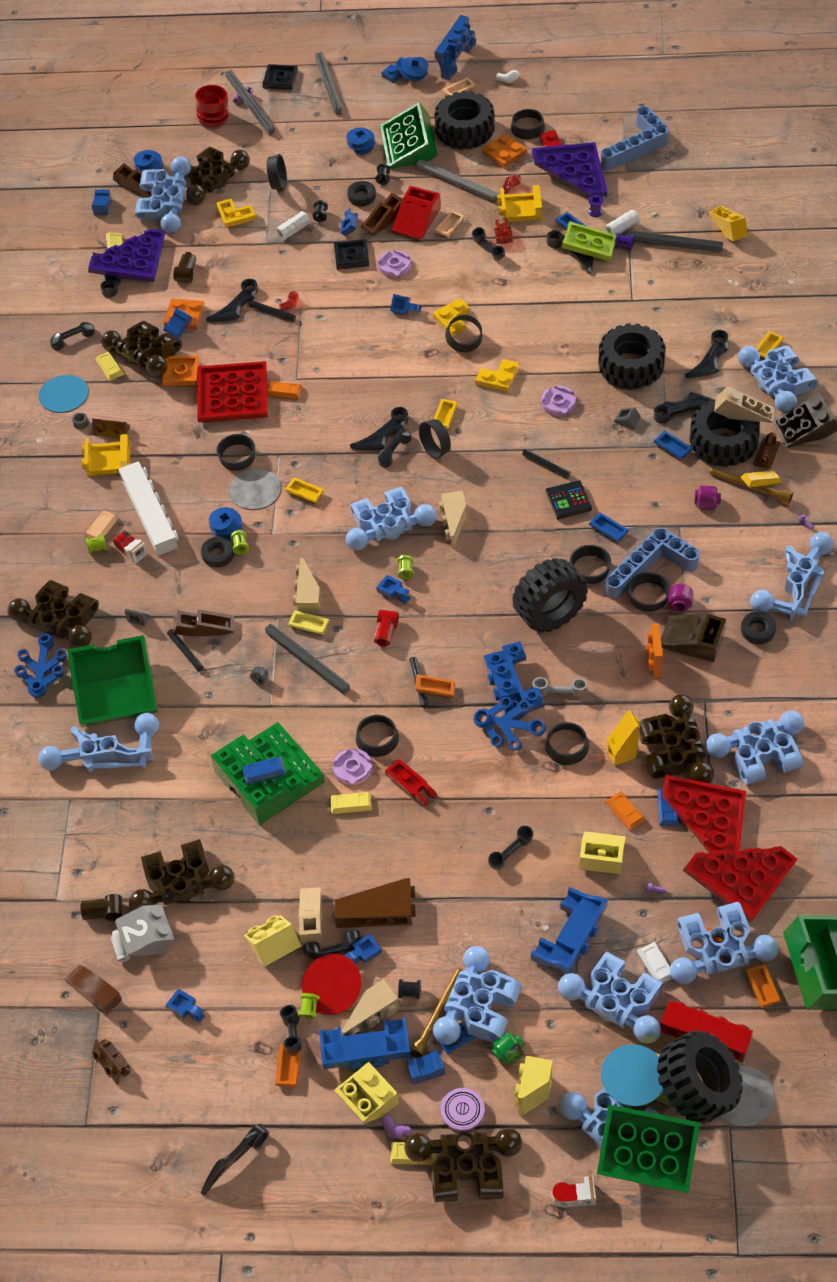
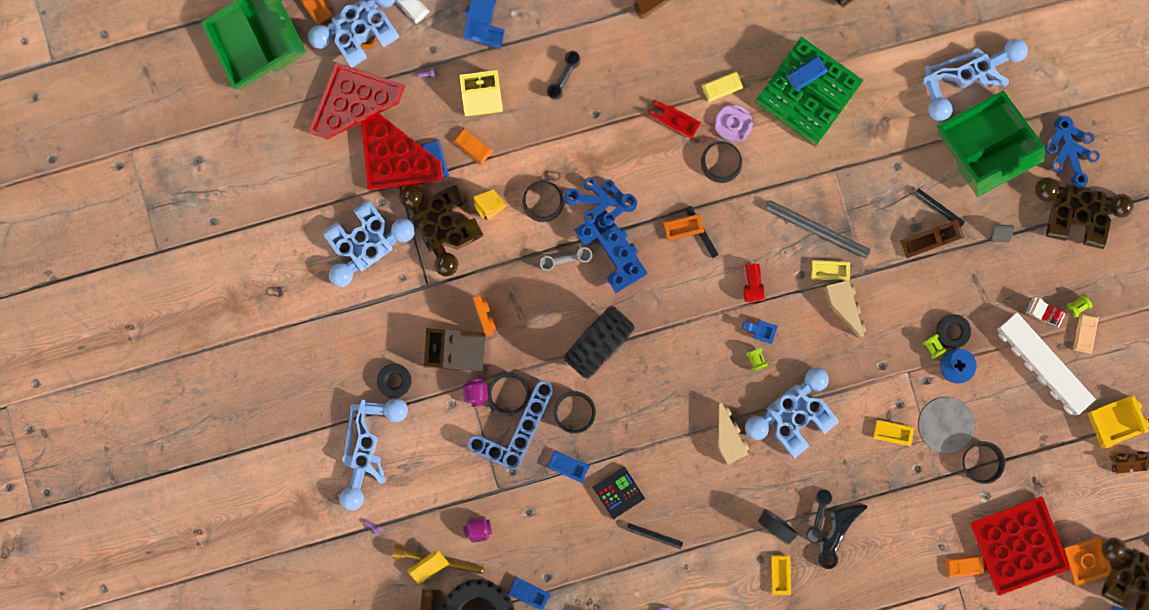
camera: 160 degrees right, 30 degrees up
(259, 675) = (855, 195): dark grey axle -> none

